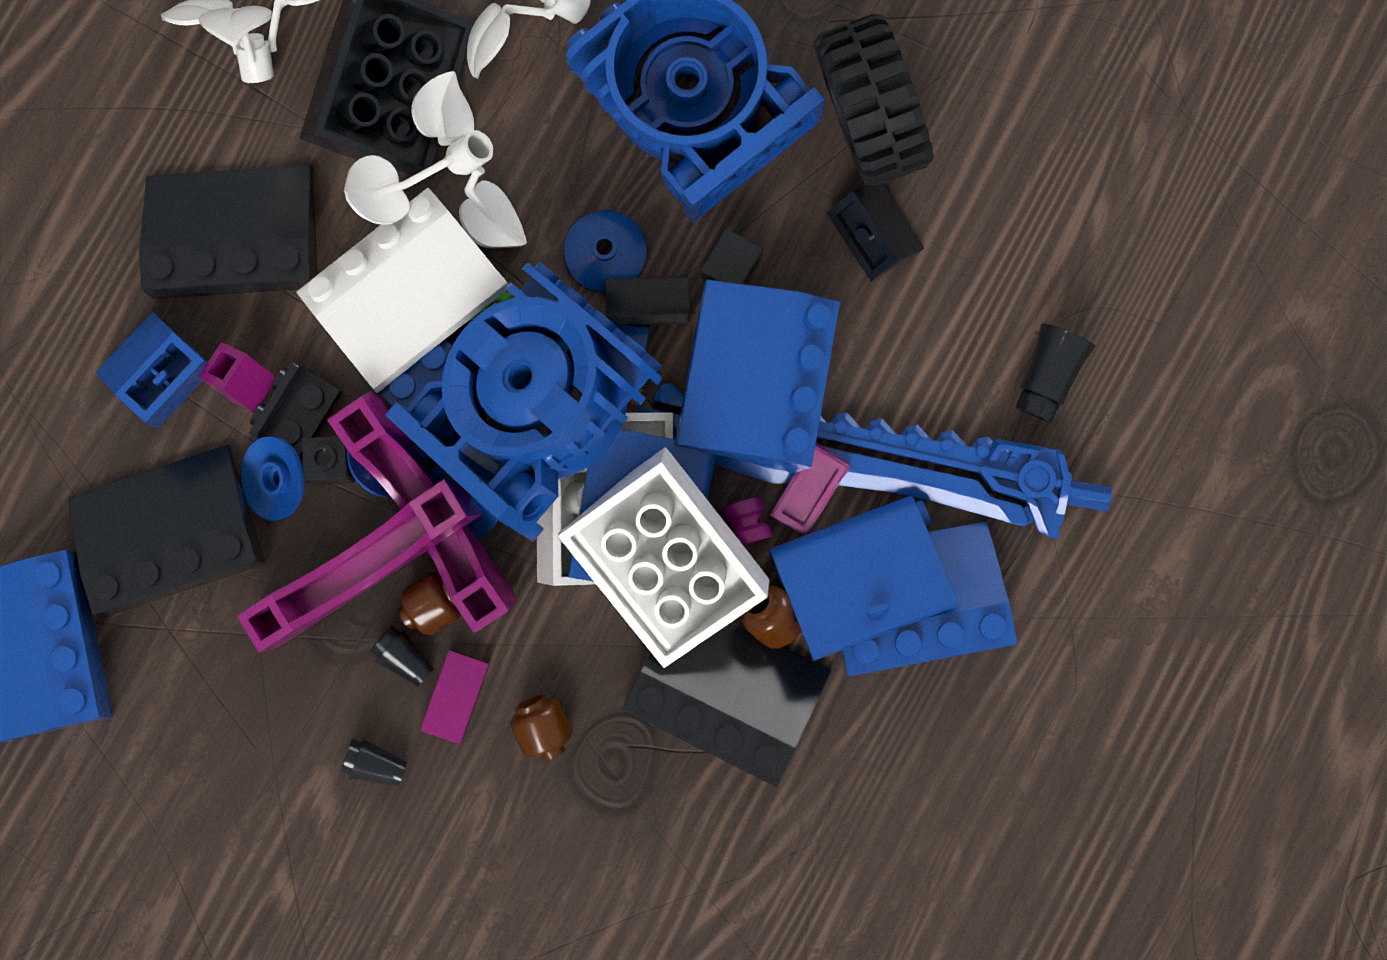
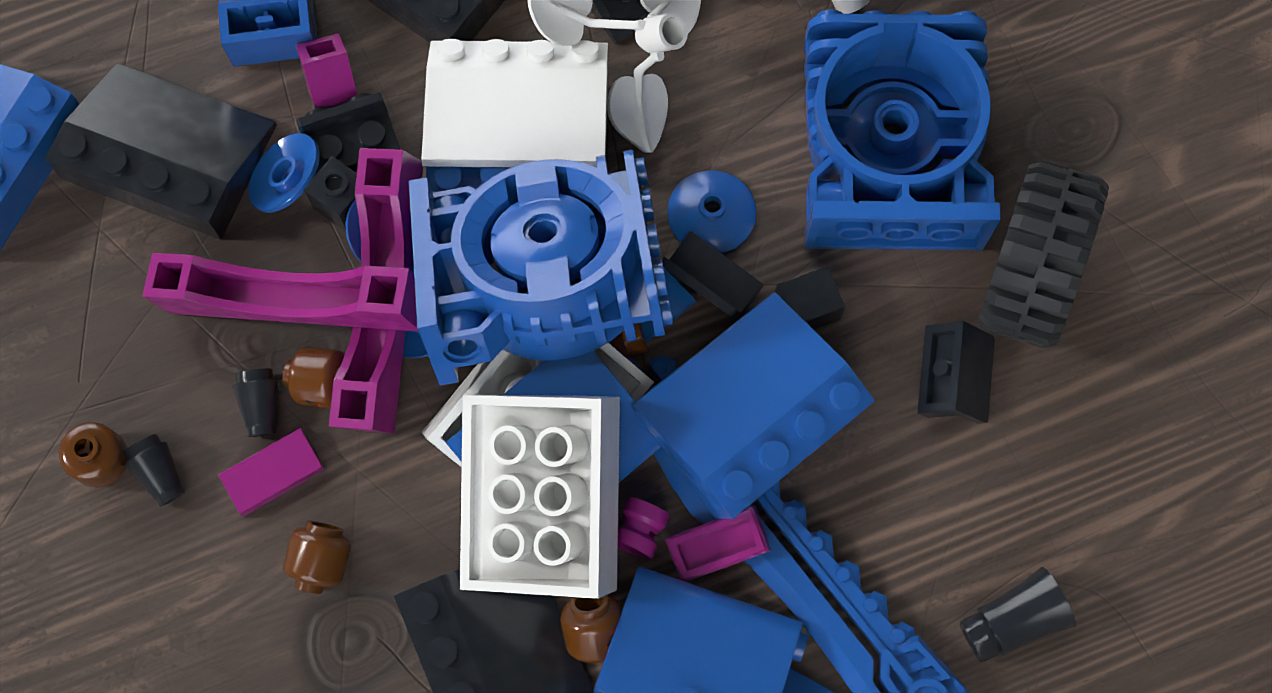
camera: 35 degrees right, 10 degrees down
(336, 789) = (93, 454): none -> reddish brown head

